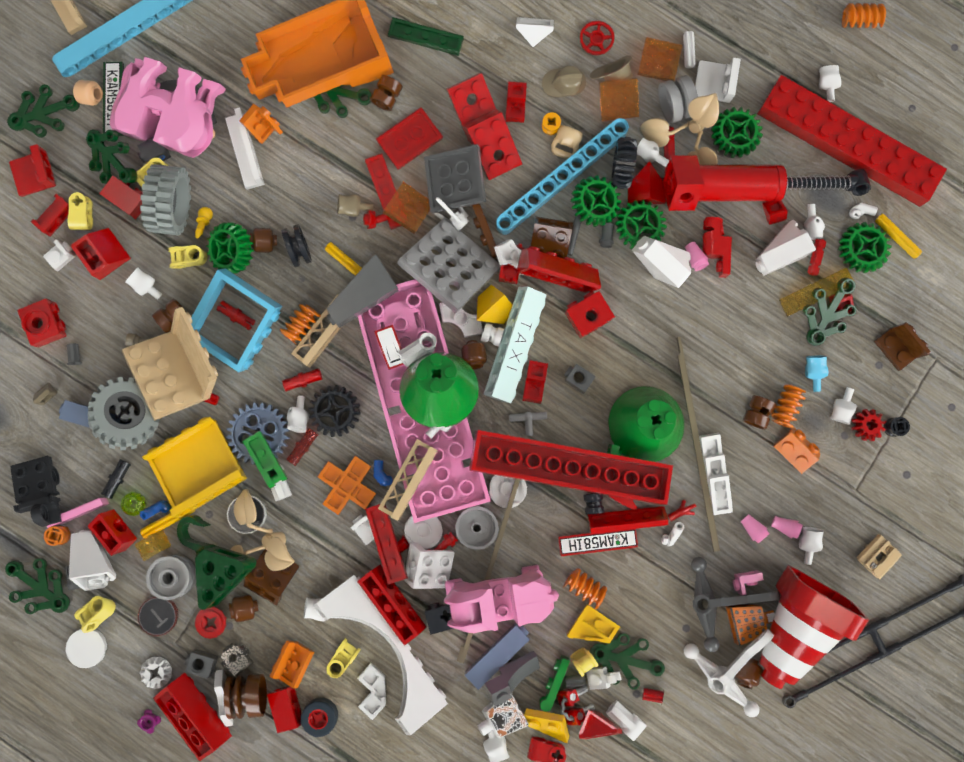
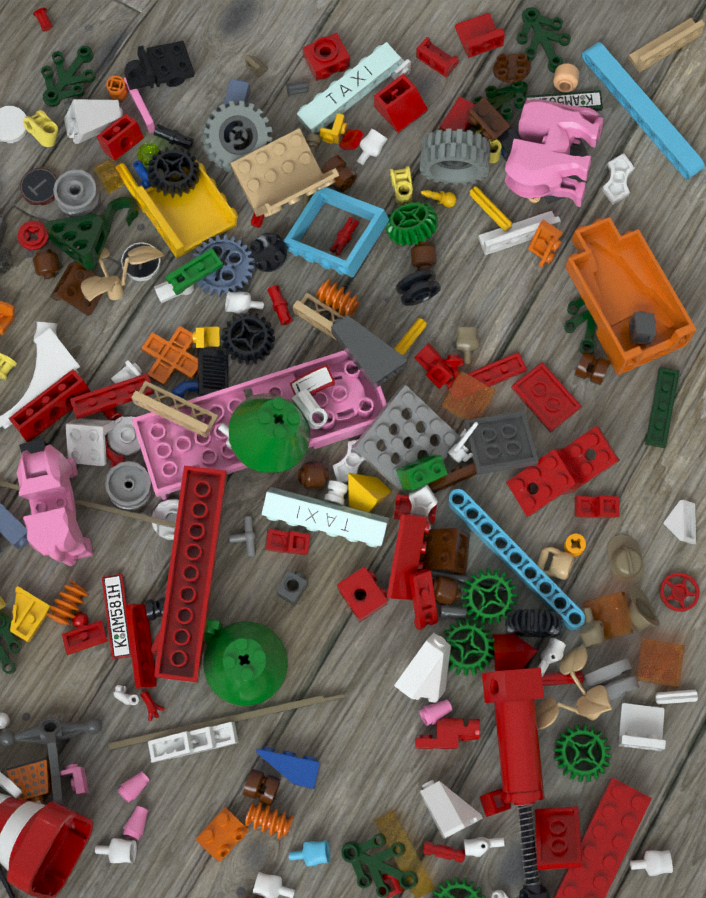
camera: 90 degrees right, 10 degrees down
(71, 143) = (512, 67): none -> reddish brown dish
(80, 212) = (438, 82): light yellow piece -> none
(80, 300) = (349, 89): none -> light aqua brick
(129, 165) = (487, 119): none -> reddish brown bracket
(129, 320) = (334, 135): none -> yellow bracket
(134, 302) = (351, 139): none -> red plate
(143, 469) = (174, 179): none -> black gear
(190, 53) = (616, 187): none -> white tile
(218, 174) = (490, 208): none -> yellow axle
(247, 387) = (268, 252): none -> black dish
(302, 447) = (210, 309): clear red pin -> none
(330, 450) = (206, 337): none -> yellow bracket
(351, 42) = (642, 328): none -> dark grey brick
(367, 446) = (212, 371): none -> black window
(373, 236) = (434, 364): none -> red slope
(481, 251) = (421, 472): none -> green brick
(588, 241) = (446, 590): none -> reddish brown head
(598, 258) = (423, 599): none -> red plate
(616, 573) = (85, 635): none -> red plate
(633, 112) = (592, 631): none -> dark tan piece
(745, 379) = (297, 770): none -> blue slope
(813, 155) = (558, 838): none -> red plate

